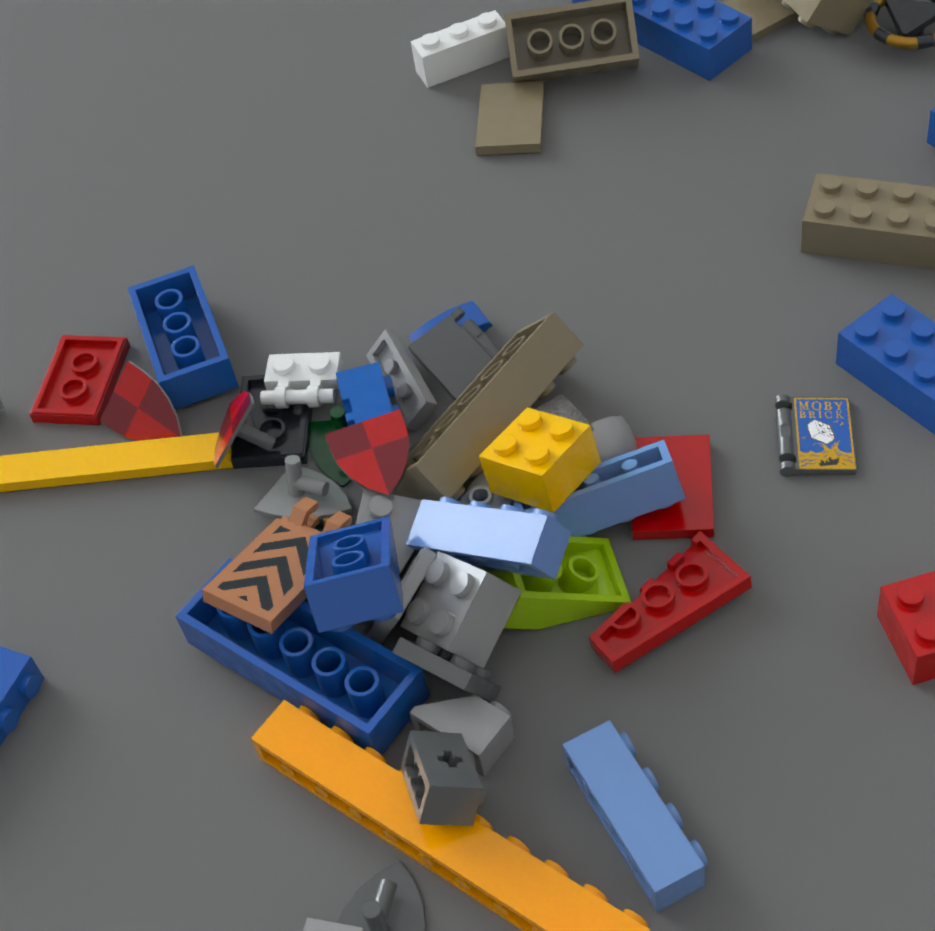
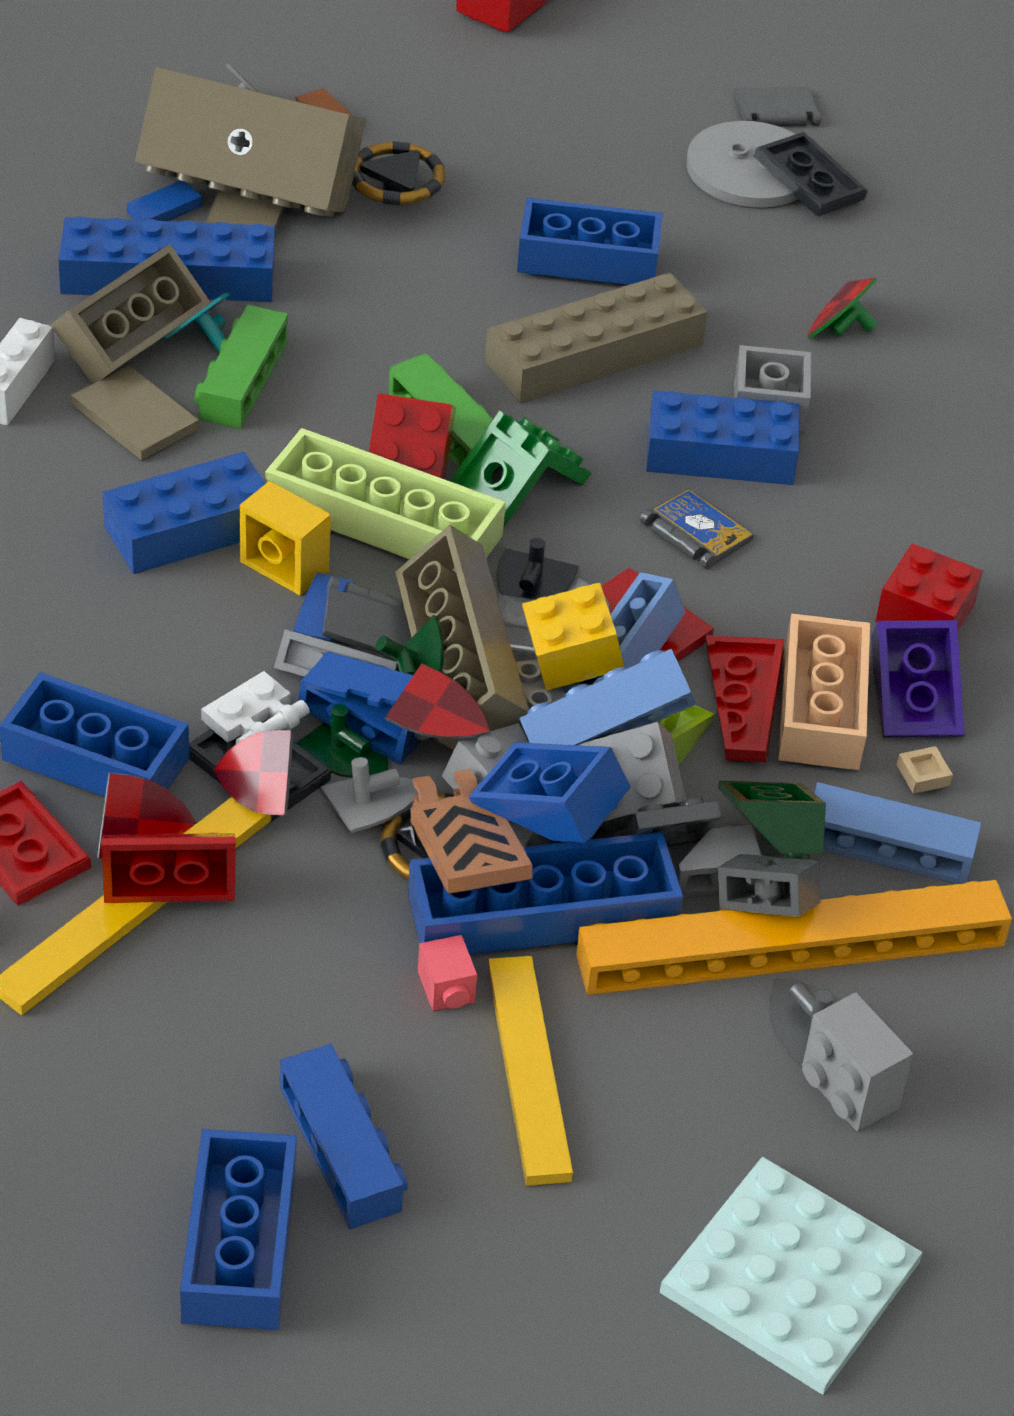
camera: 60 degrees left, 5 degrees down
(104, 450) = (169, 867): none -> red slope
(142, 785) = (529, 1071): none -> yellow tile
(177, 665) = (447, 973): none -> coral brick
(431, 399) = (423, 648): none -> dark green shield
(445, 207) = (180, 511): none -> blue brick
(471, 258) = (284, 537): none -> yellow brick
(517, 719) = (782, 813): none -> dark green slope
(578, 275) = (381, 498): none -> yellowish green brick
(616, 118) = (242, 366): none -> bright green brick
(628, 66) = (209, 325): none -> teal shield
(635, 397) = (533, 574): none -> black shield
(649, 231) = (413, 432): none -> red brick
(718, 231) = (428, 381): none -> bright green brick
(721, 283) = (523, 453): none -> green bracket
(724, 645) = (825, 692): none -> light nougat brick
(738, 778) = (924, 769): none -> tan plate
(830, 694) = (918, 678): none -> dark purple slope

